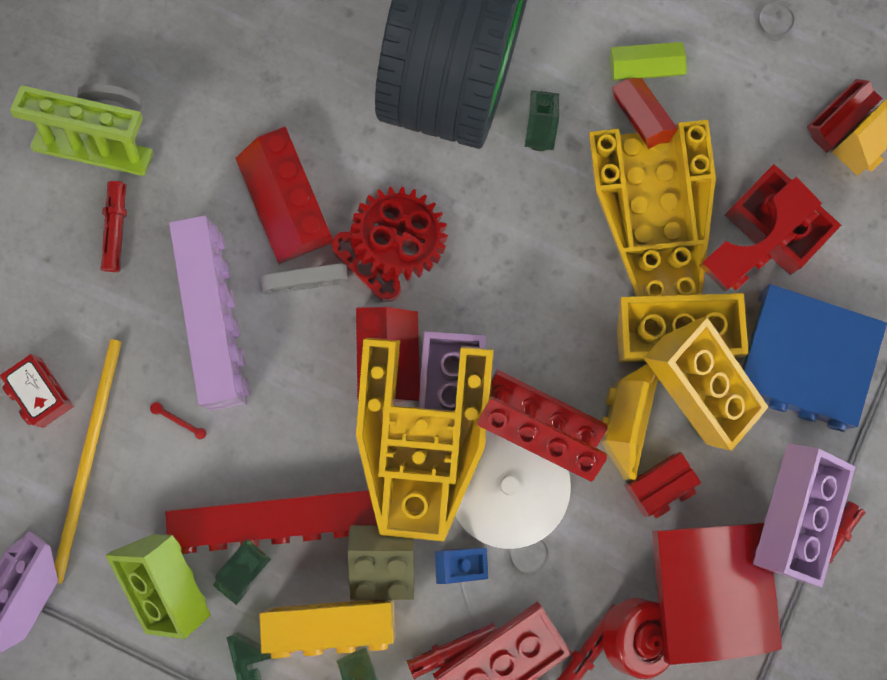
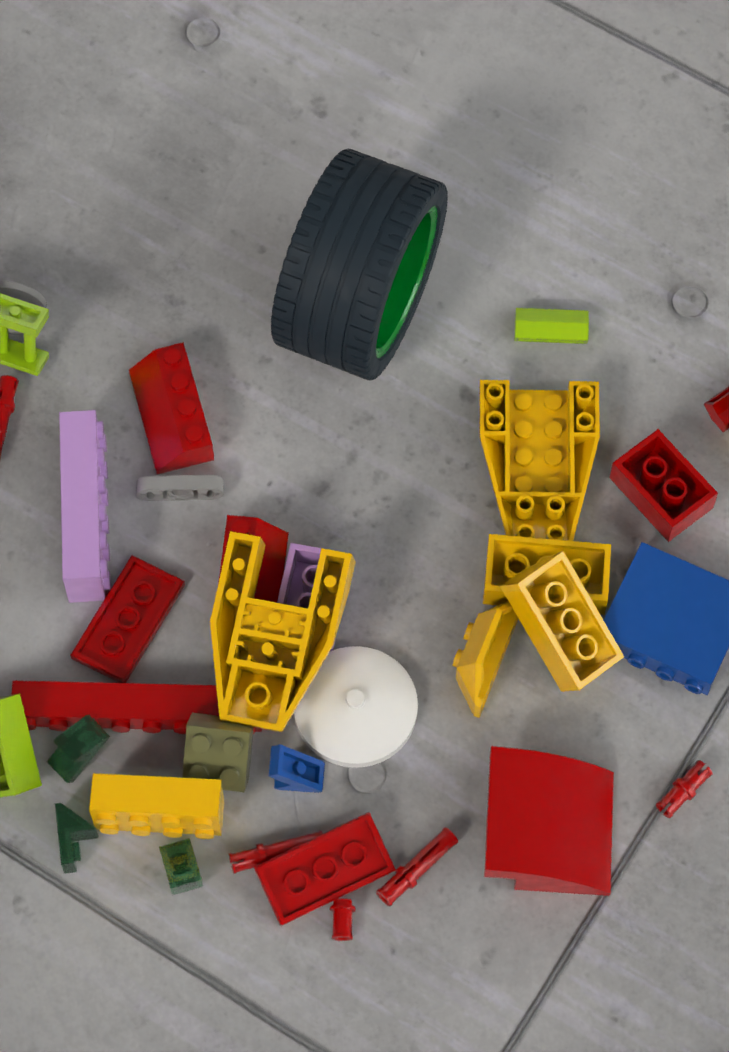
camera: 10 degrees right, 15 degrees down
(157, 409) = (16, 593): red hinge -> none
(271, 423) = (127, 620): none -> red tile
(376, 287) = (243, 472): red beam -> none
(391, 256) = (280, 455): red gear -> none
(542, 120) = (437, 368): clear green slope -> none
(544, 426) = (393, 637): red fence -> none
(635, 639) = (458, 858): red wheel -> none
(644, 112) = (539, 369): red piece -> none
(662, 485) = (510, 720): red brick -> none
(788, 210) = (603, 513): red arch -> none
(804, 514) = (645, 759): lavender brick -> none

